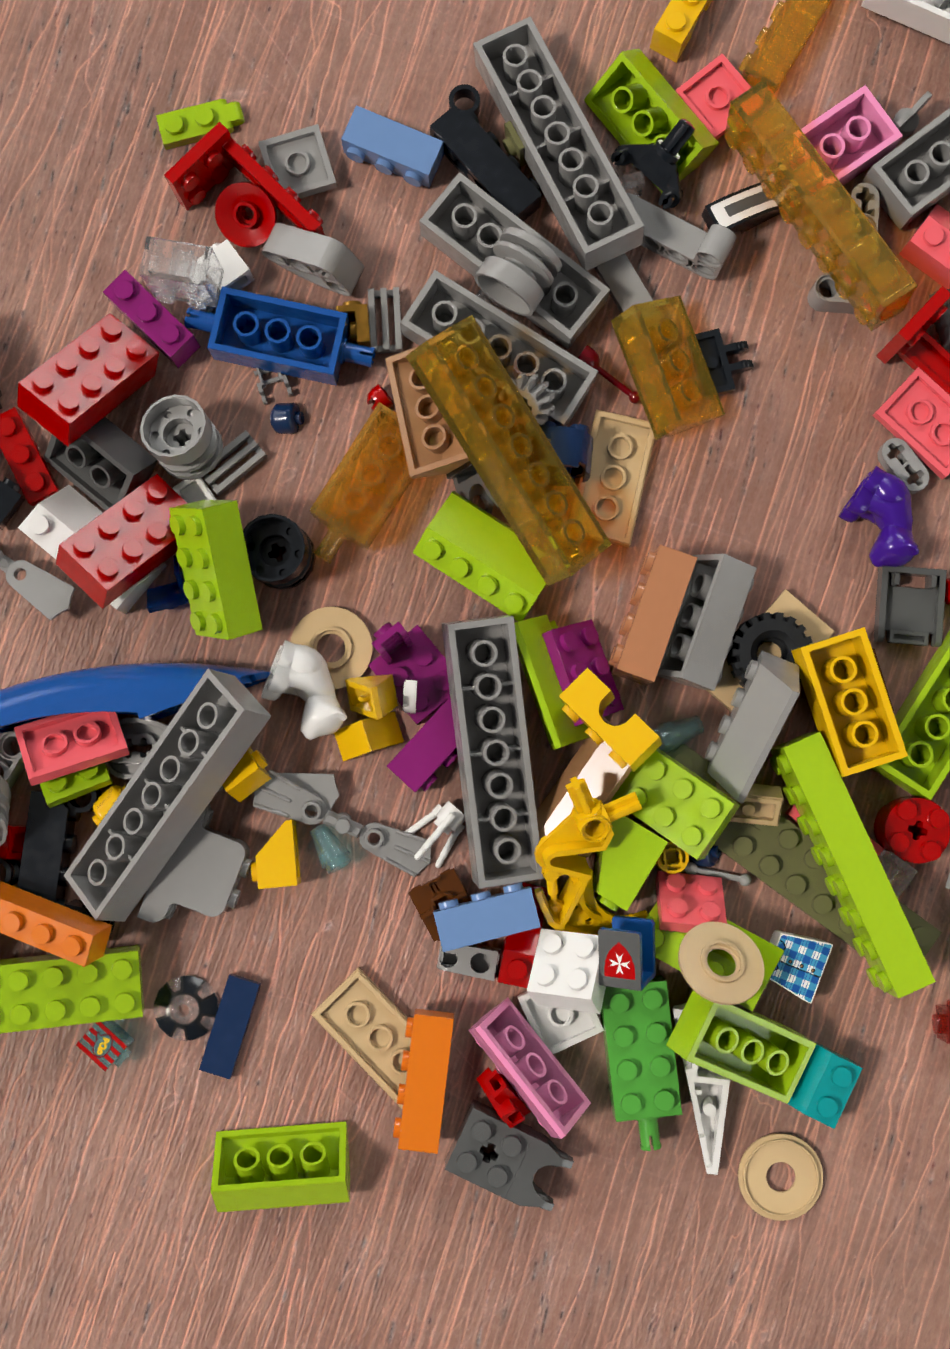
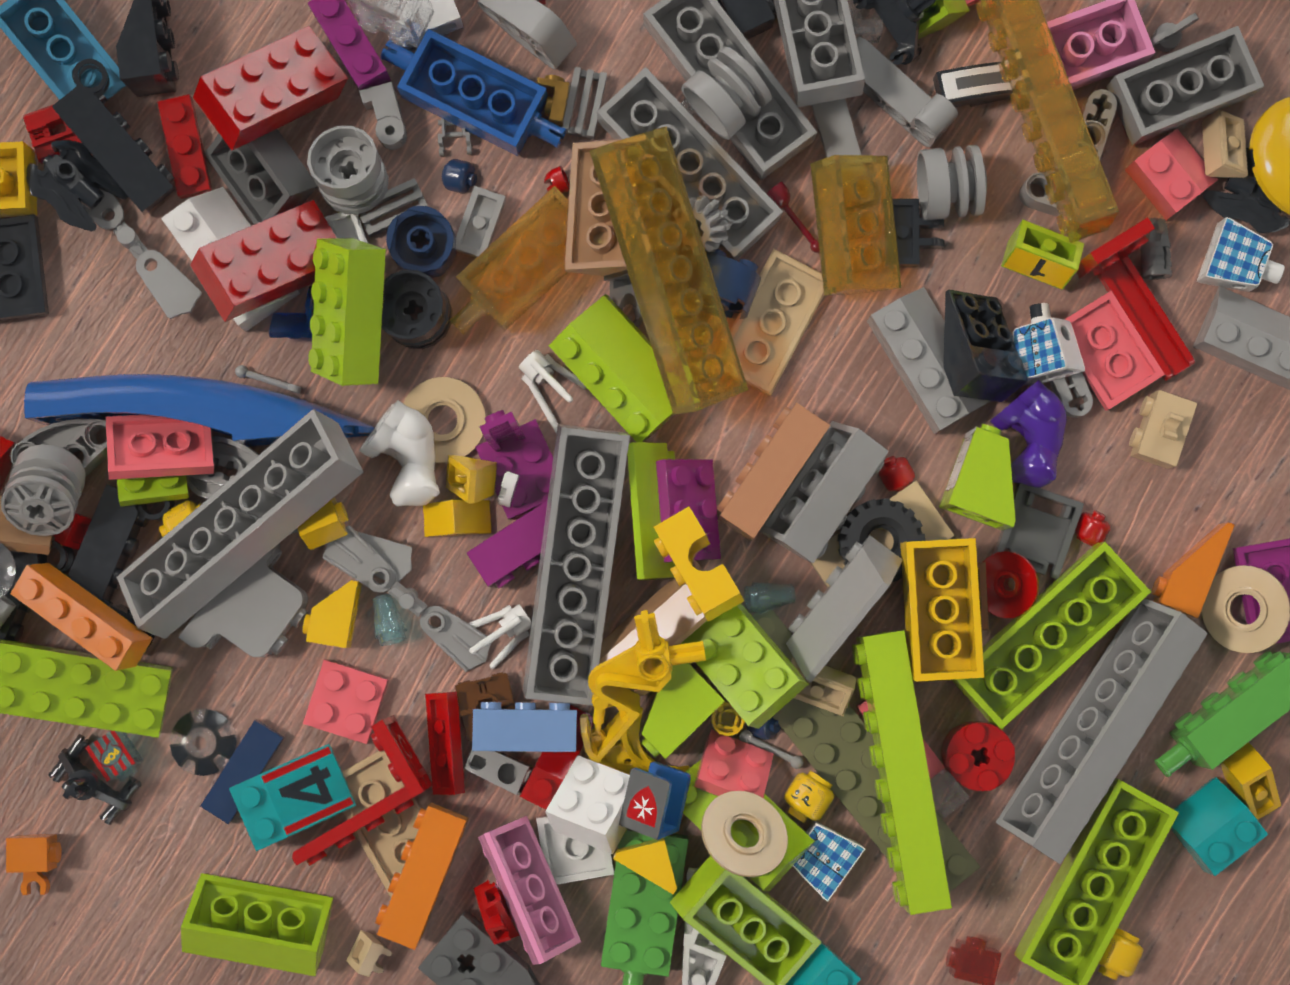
camera: 15 degrees right, 0 degrees up
(52, 1160) = (33, 856): none -> orange brick
(86, 1078) = (86, 784): none -> black axle
(132, 652) = (242, 371): none -> light grey hinge
(210, 387) = (390, 124): none -> light grey leg
(255, 476) = (411, 228): none -> dark blue brick
(283, 1039) = (292, 797): none -> teal slope
(310, 934) = (345, 701): none -> coral plate
(316, 455) = (479, 221): none -> light grey plate
(381, 983) = (404, 766): none -> red bracket
(391, 1167) = (365, 954): none -> tan tile
(409, 577) = (538, 369): none -> white plant
(413, 949) = (445, 743): none -> red plate
(638, 1012) = (650, 861): none -> yellow slope
(746, 304) = (956, 182): none -> light grey wheel
(765, 588) = (896, 473): none -> red piece
(766, 475) = (914, 342): none -> light grey slope
(766, 909) = (808, 796): none -> yellow head
(813, 451) = (979, 348): none -> black slope
(847, 350) = (1042, 254): none -> lime brick
(849, 572) = (982, 480): none -> lime slope
(873, 435) = (1047, 346): none -> torso
(916, 662) = (1000, 598): none -> red dish

